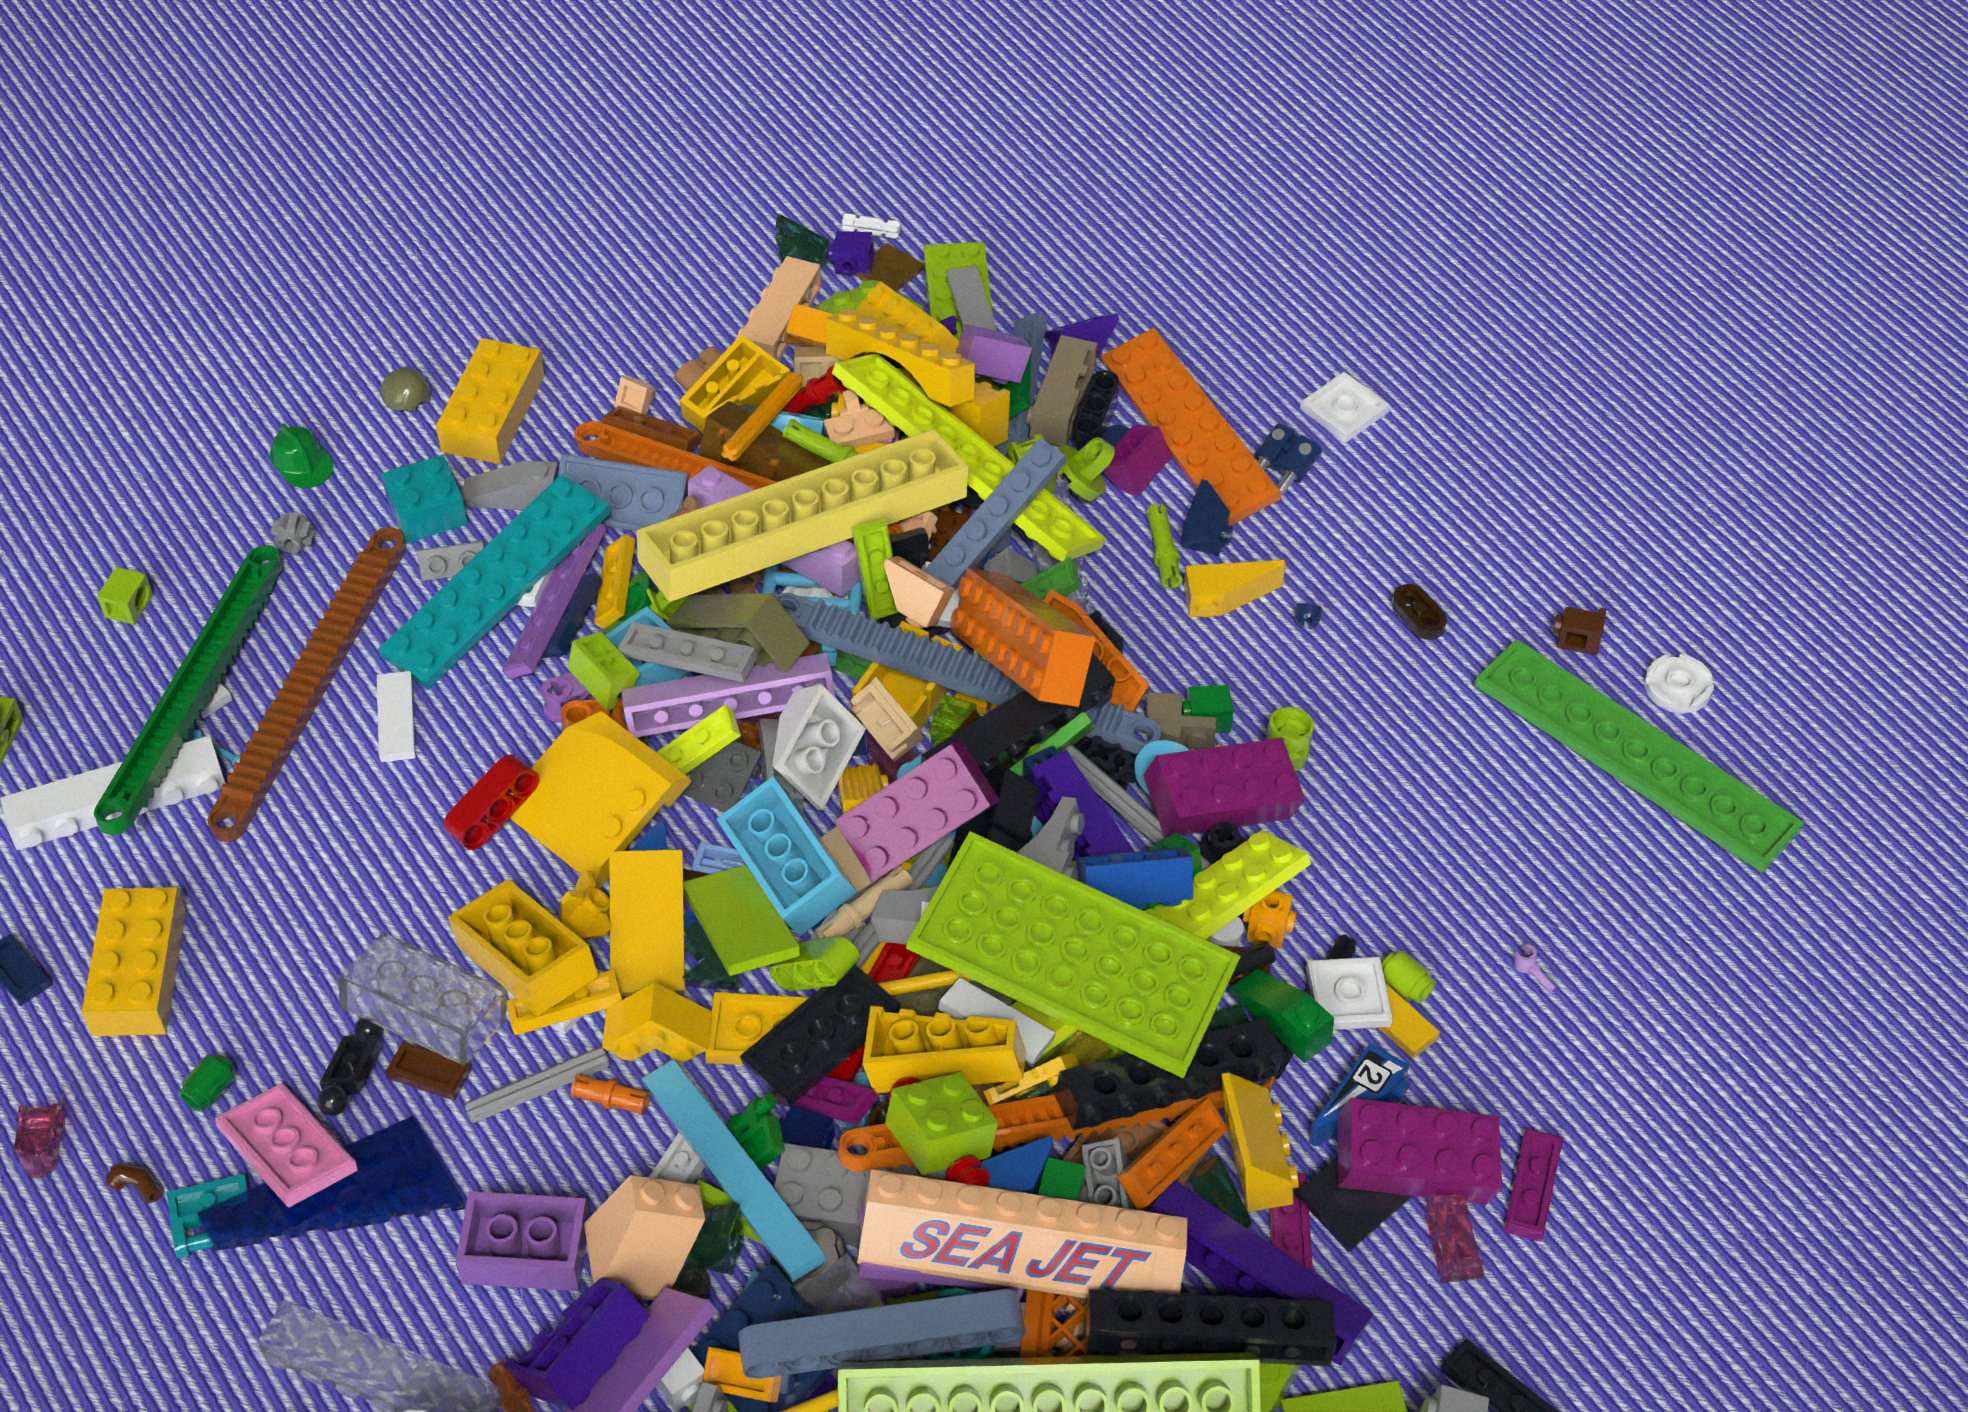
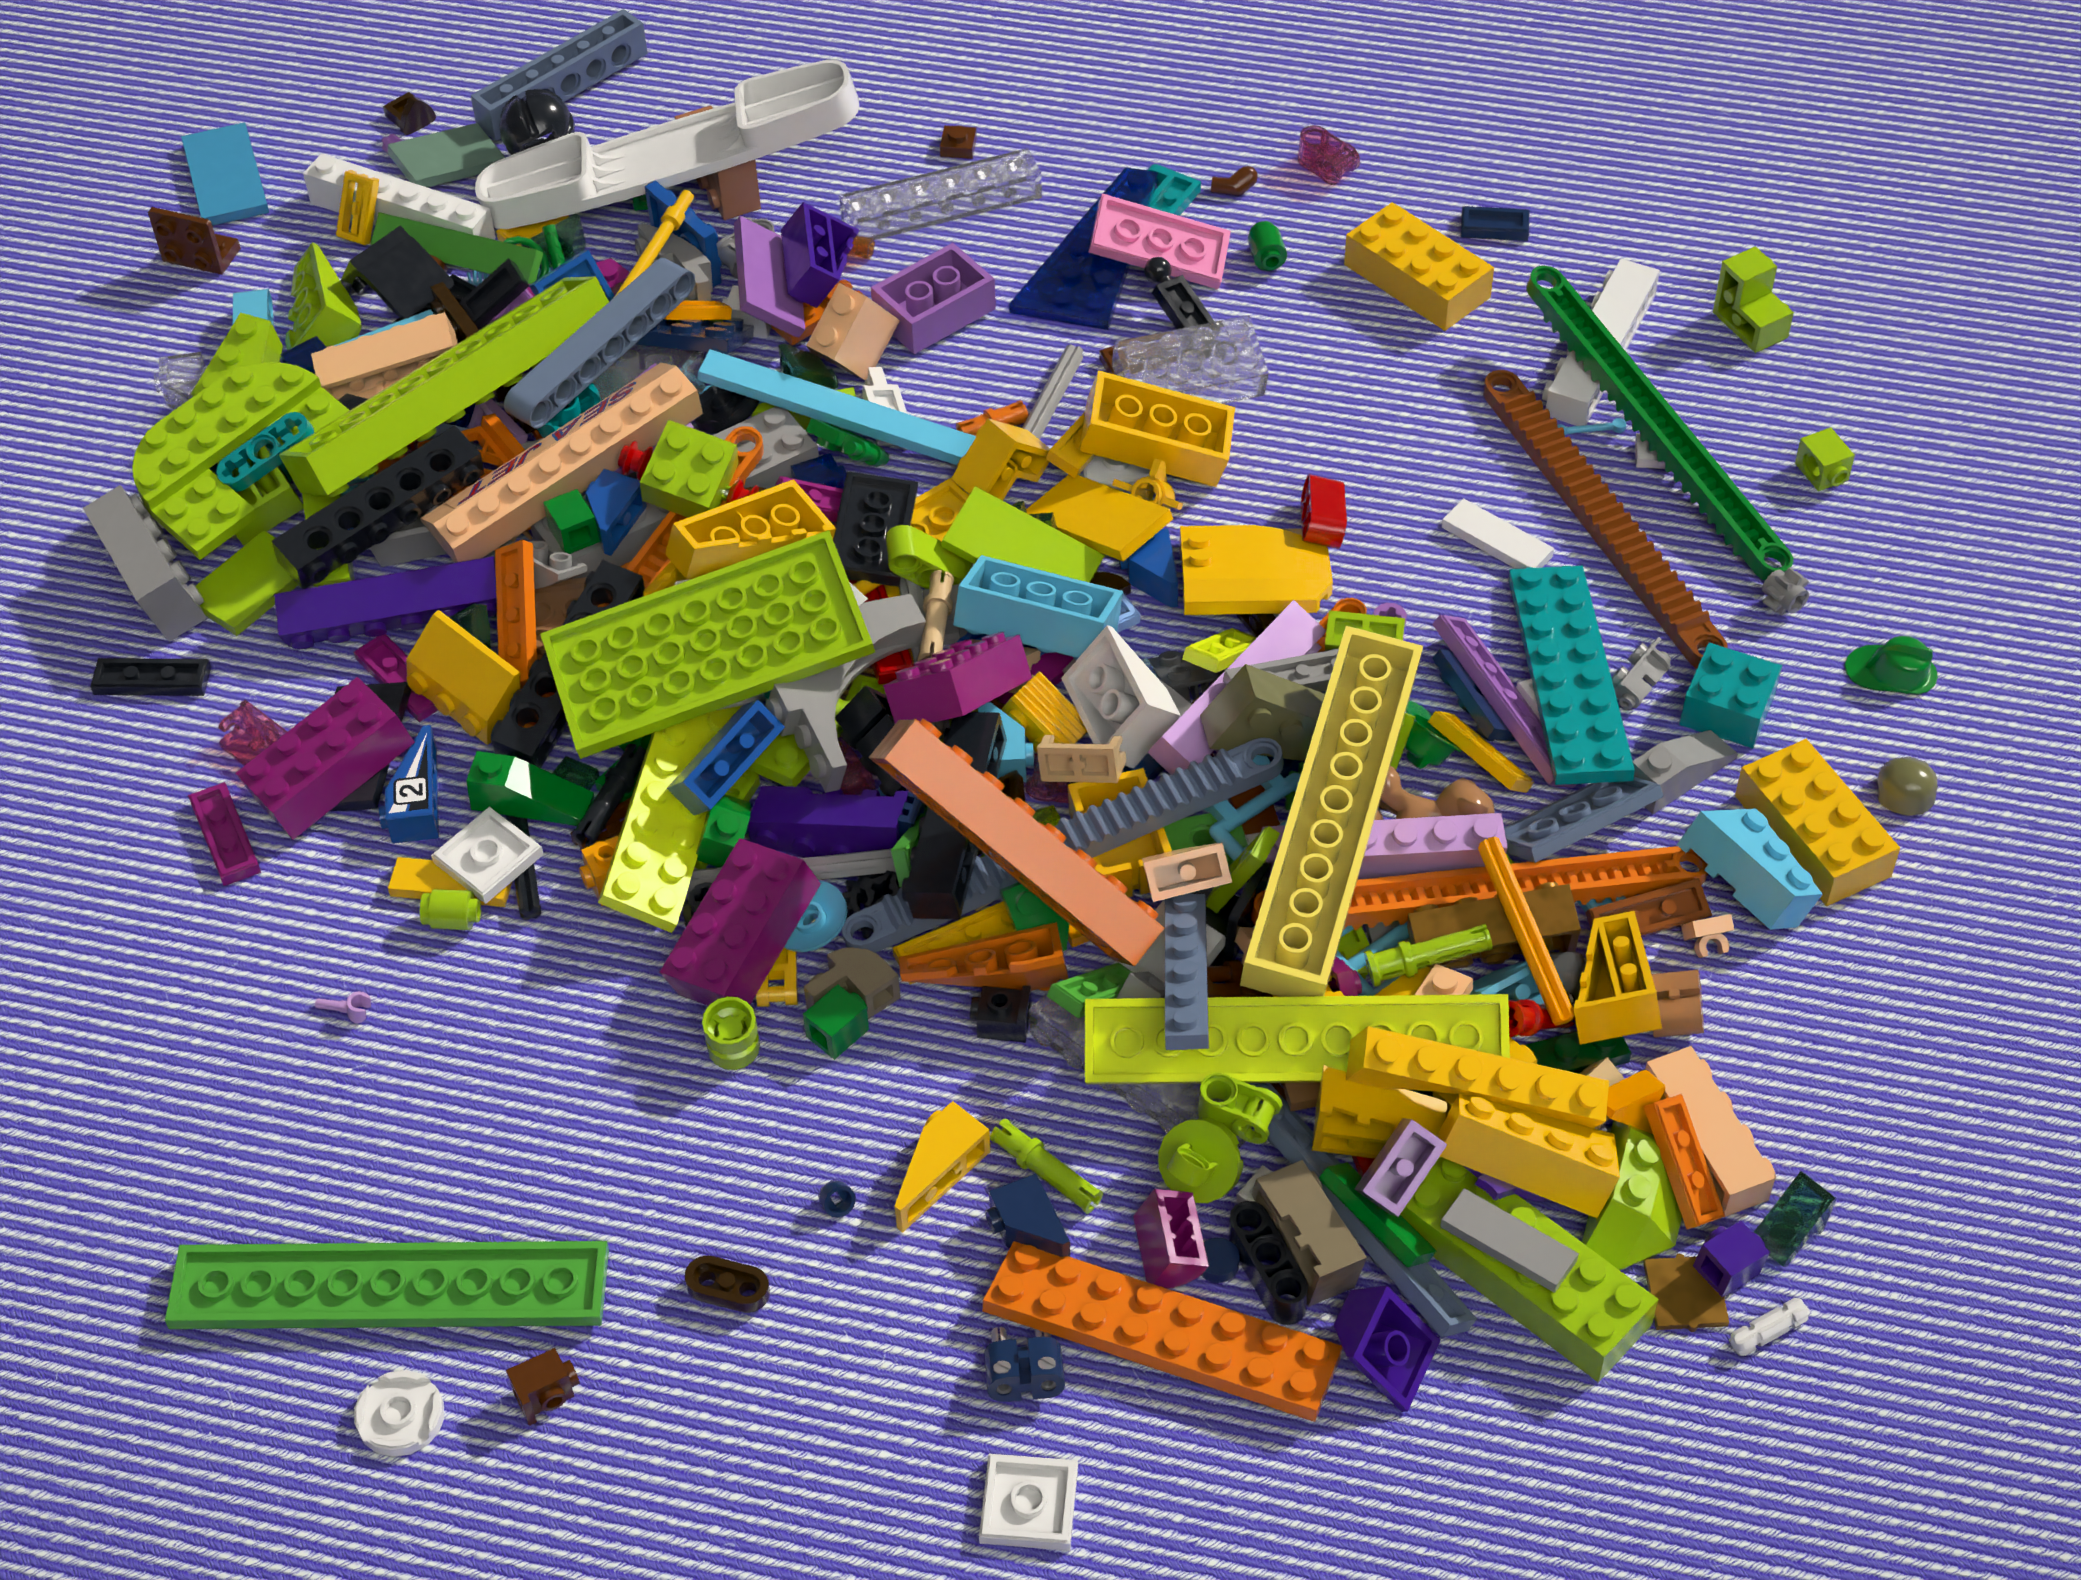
camera: 140 degrees right, 0 degrees up
(564, 397) = (1755, 863): none -> medium azure wedge
(822, 290) = (1684, 1161): none -> orange tile

